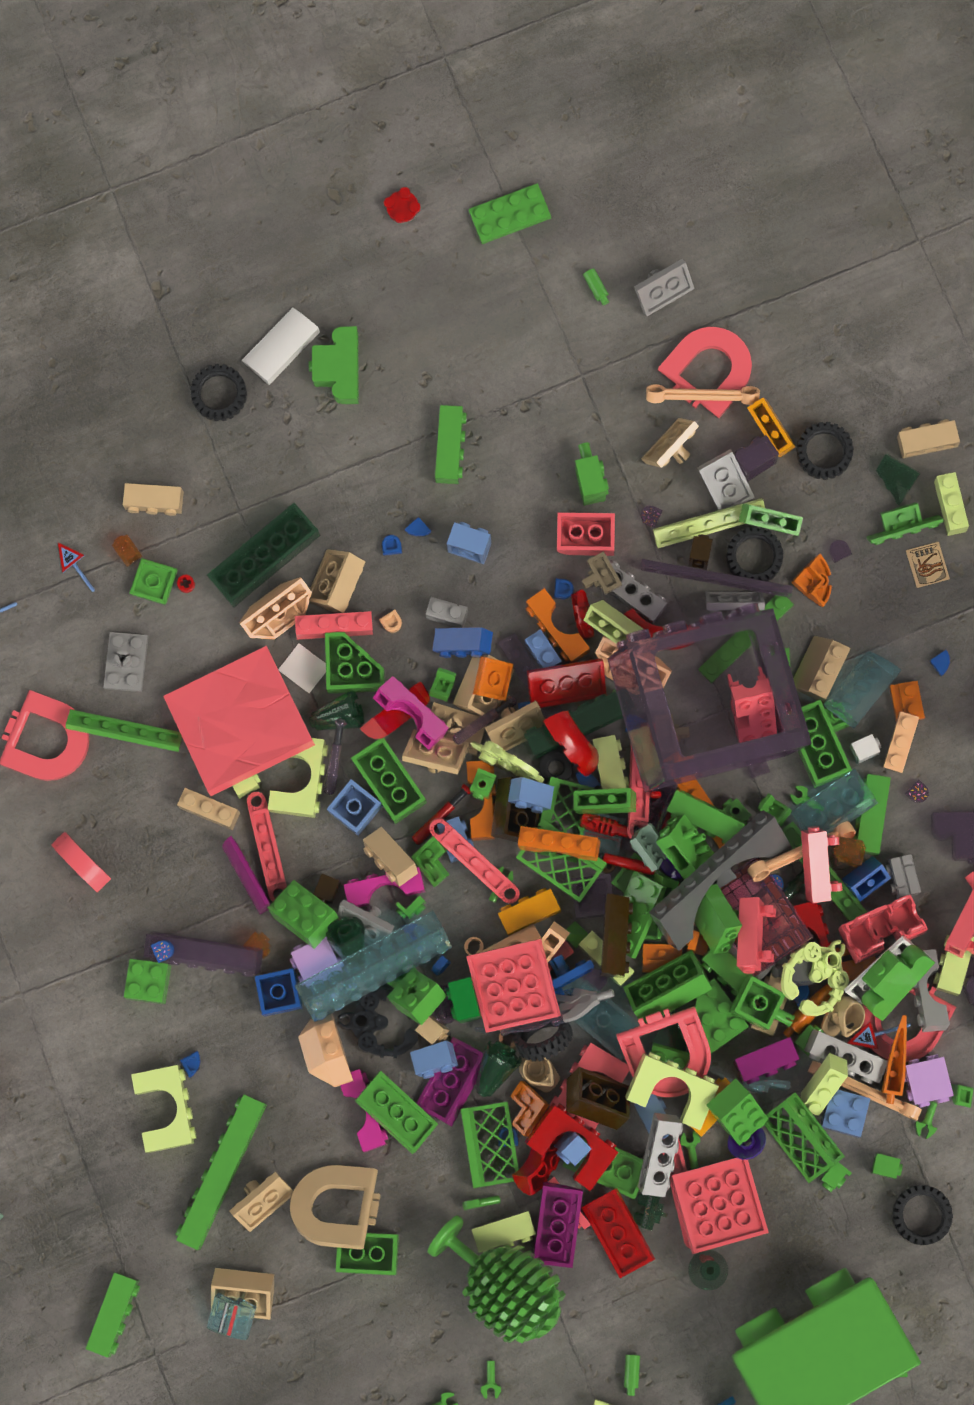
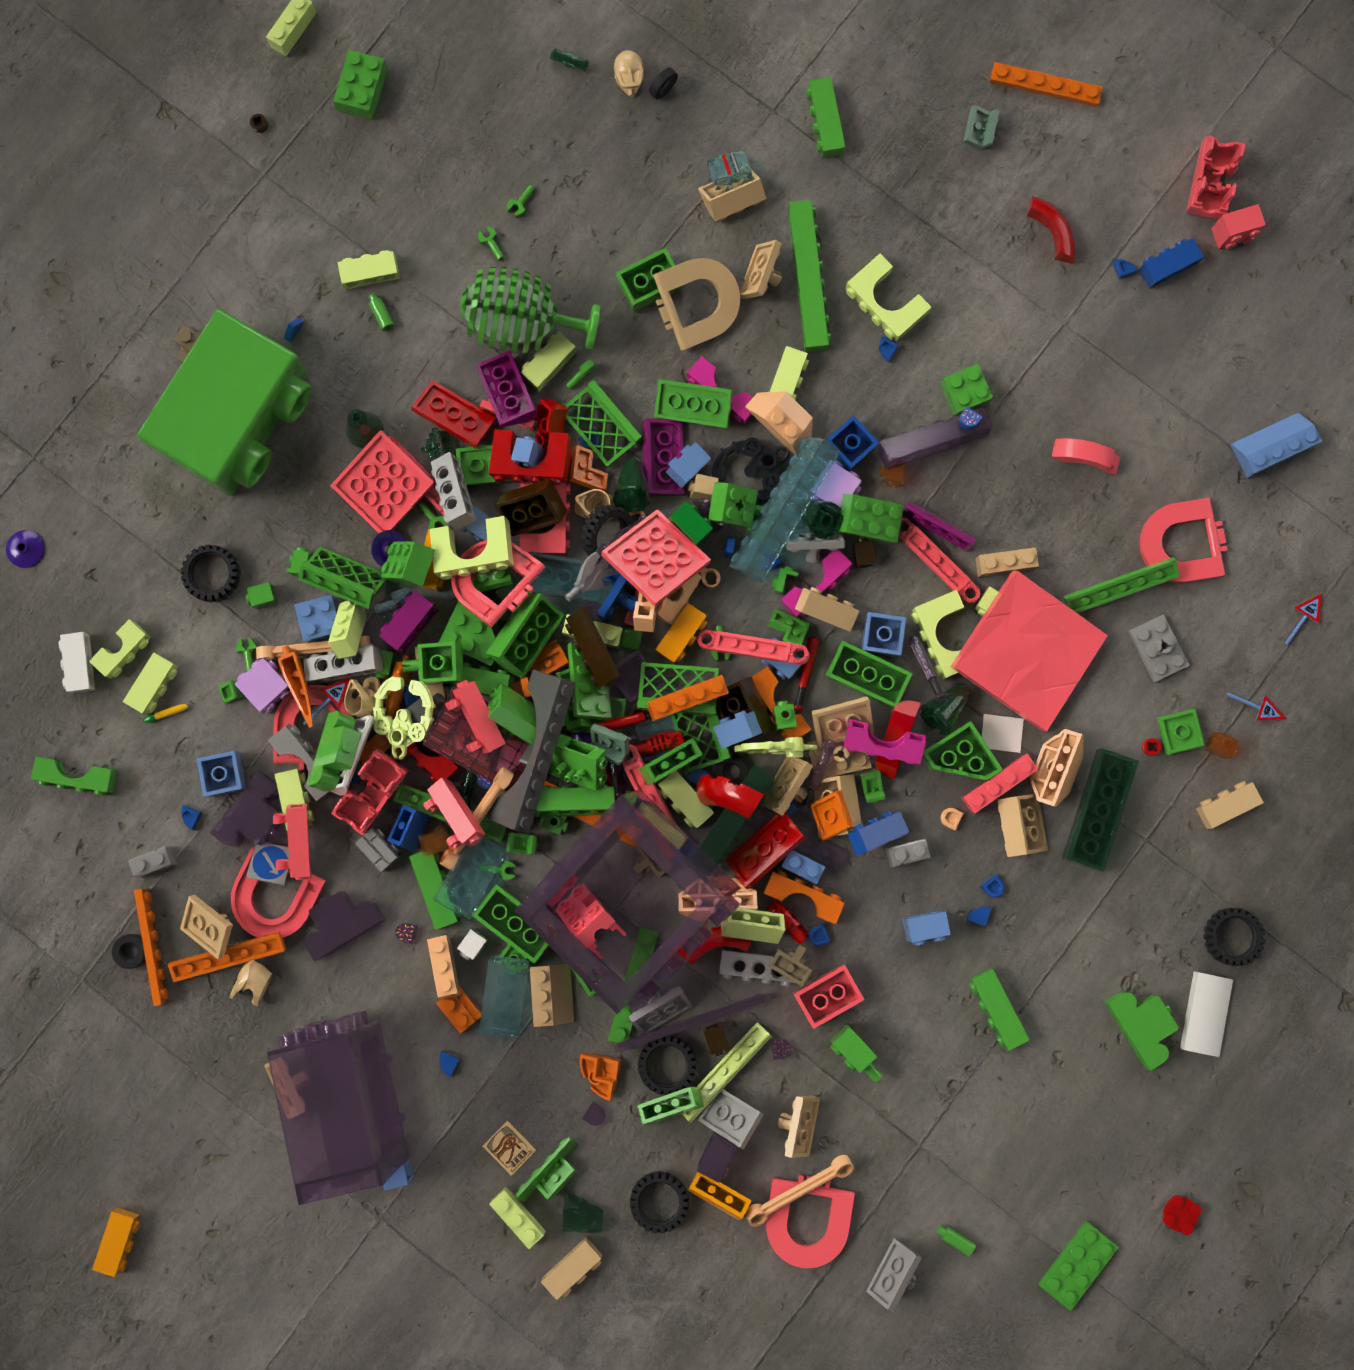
camera: 140 degrees right, 5 degrees up
(294, 1090) = (789, 371): none -> yellowish green brick

